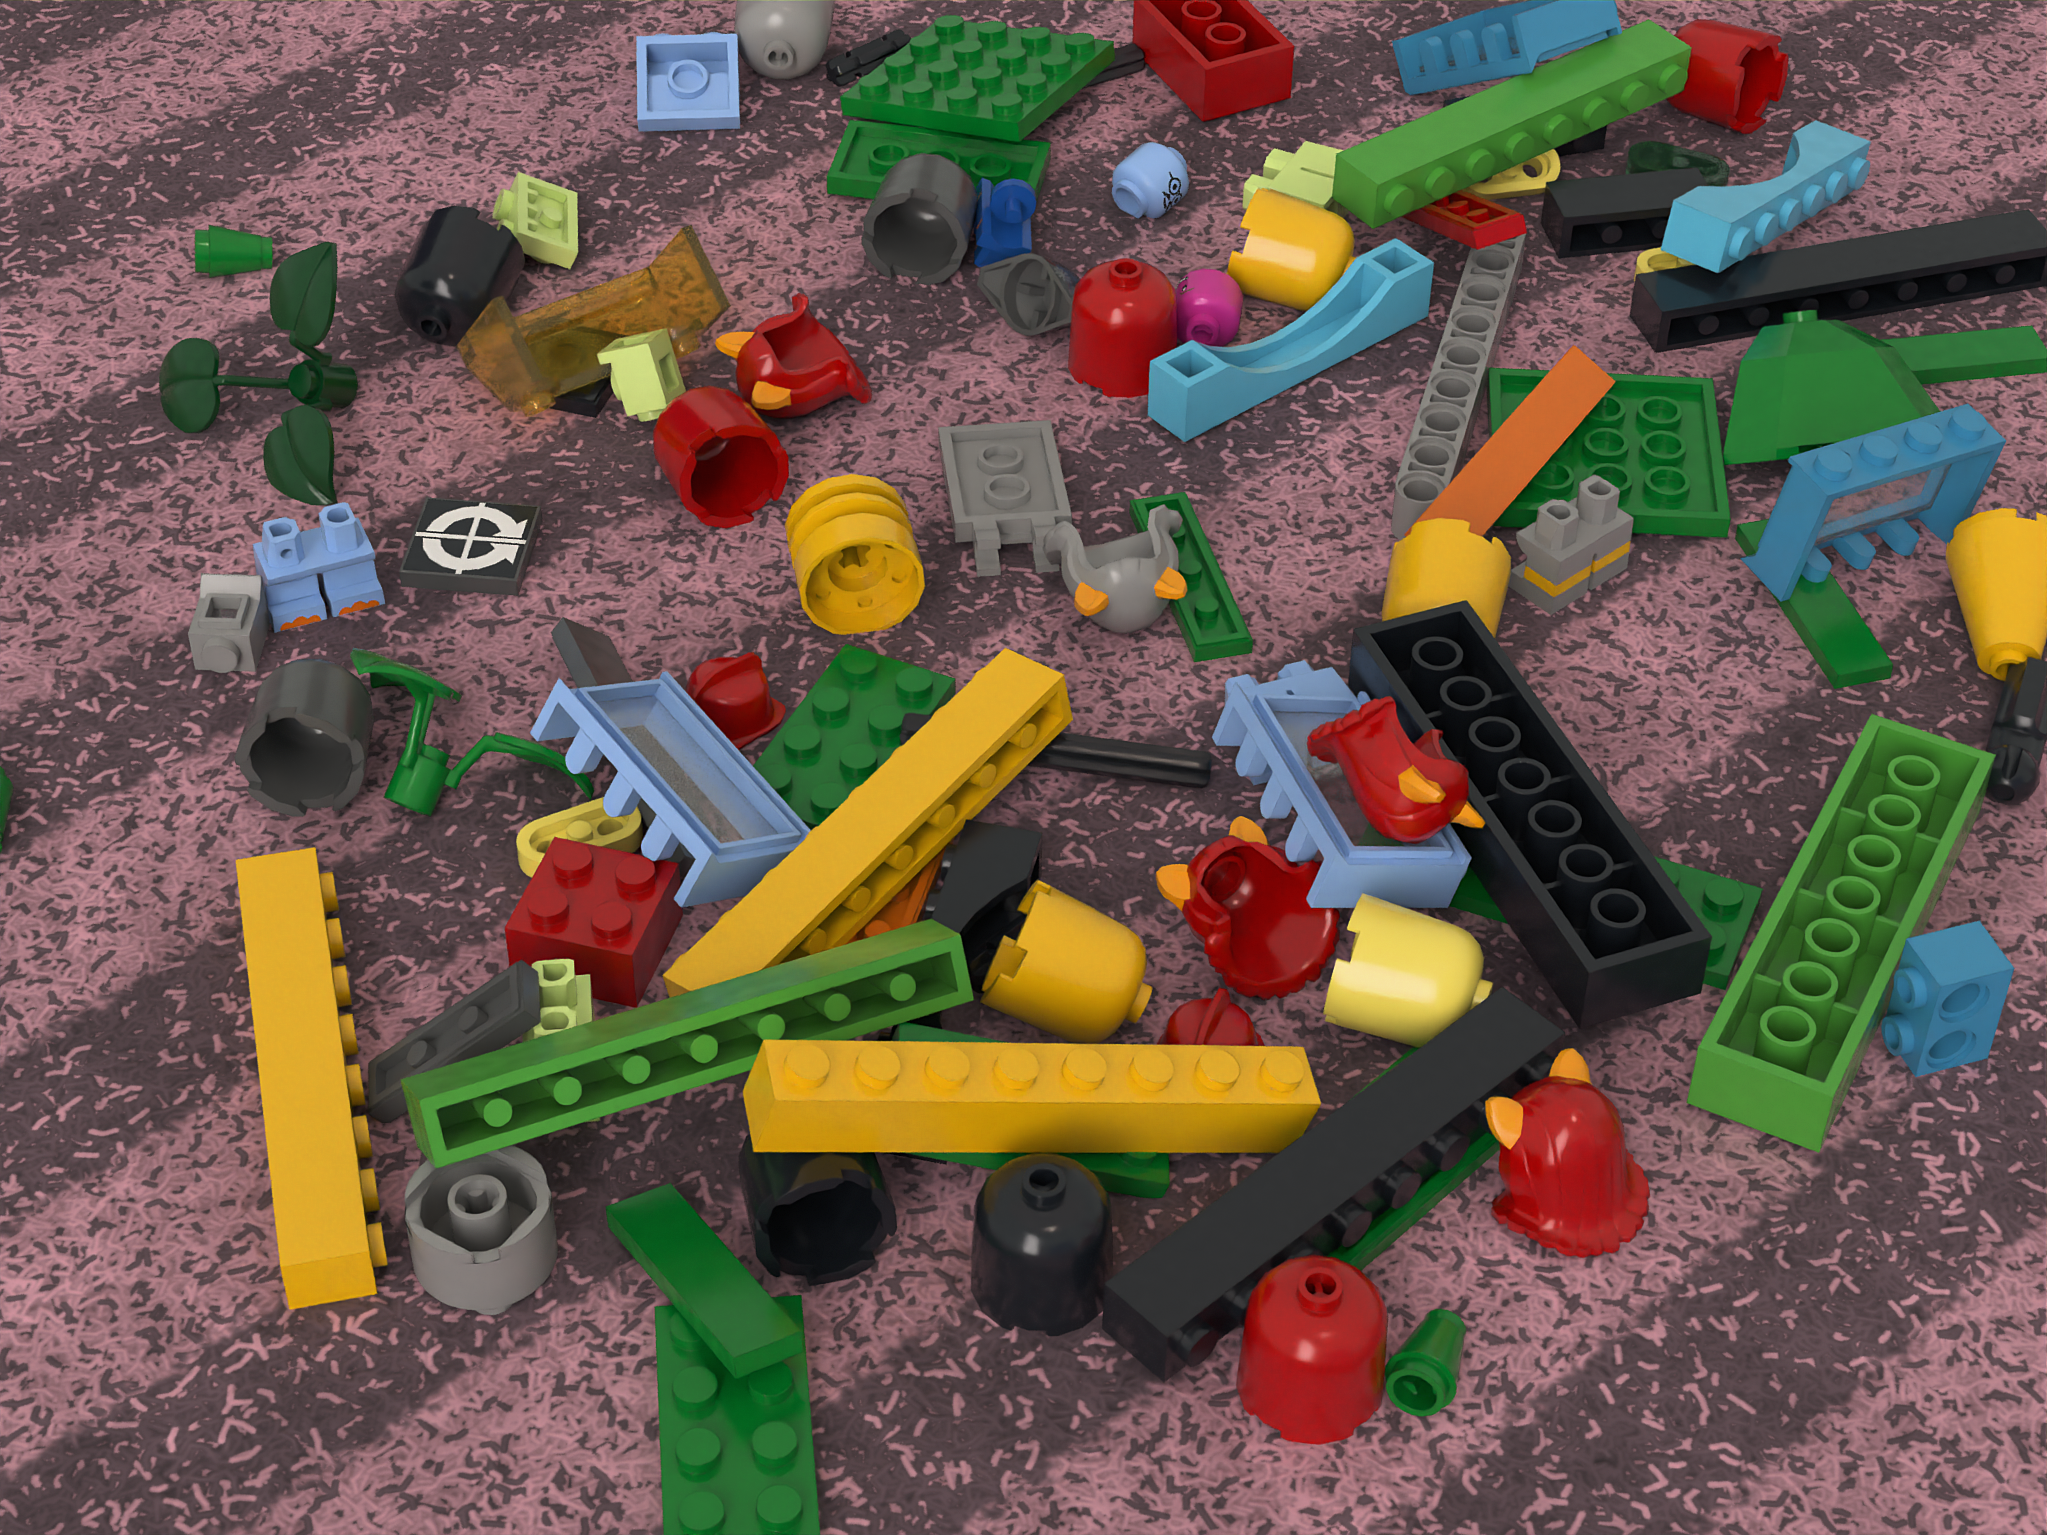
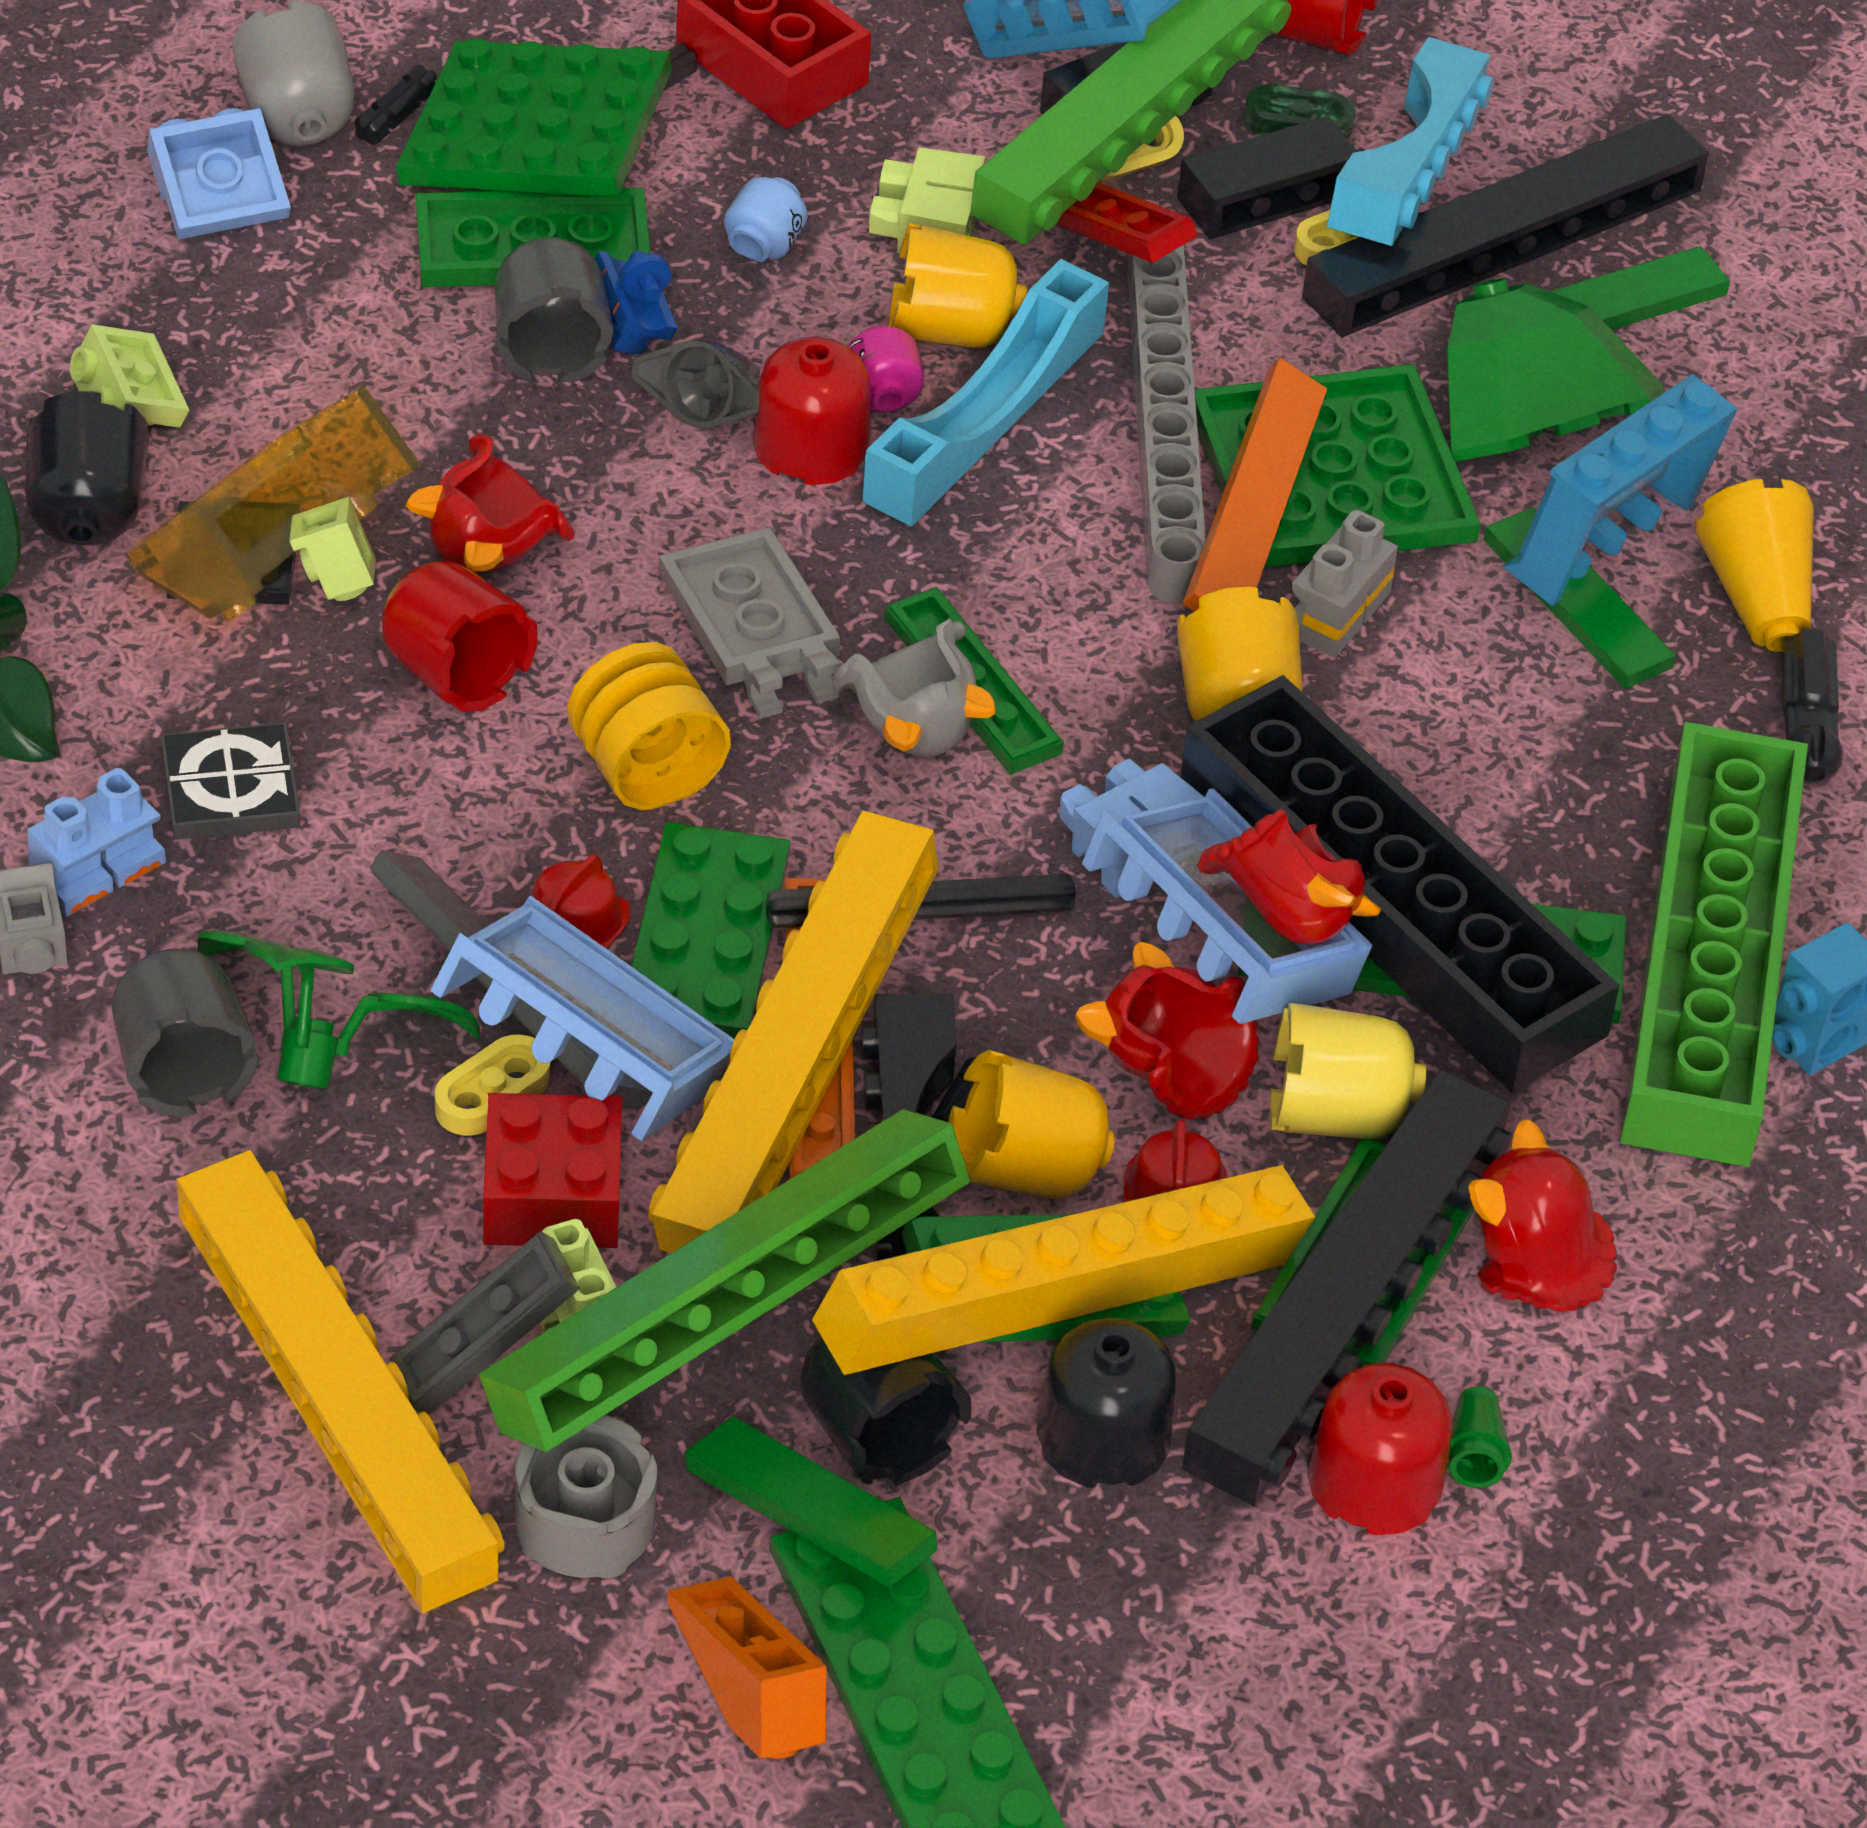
camera: 20 degrees left, 5 degrees up
(575, 1433) = (754, 1667): none -> orange slope

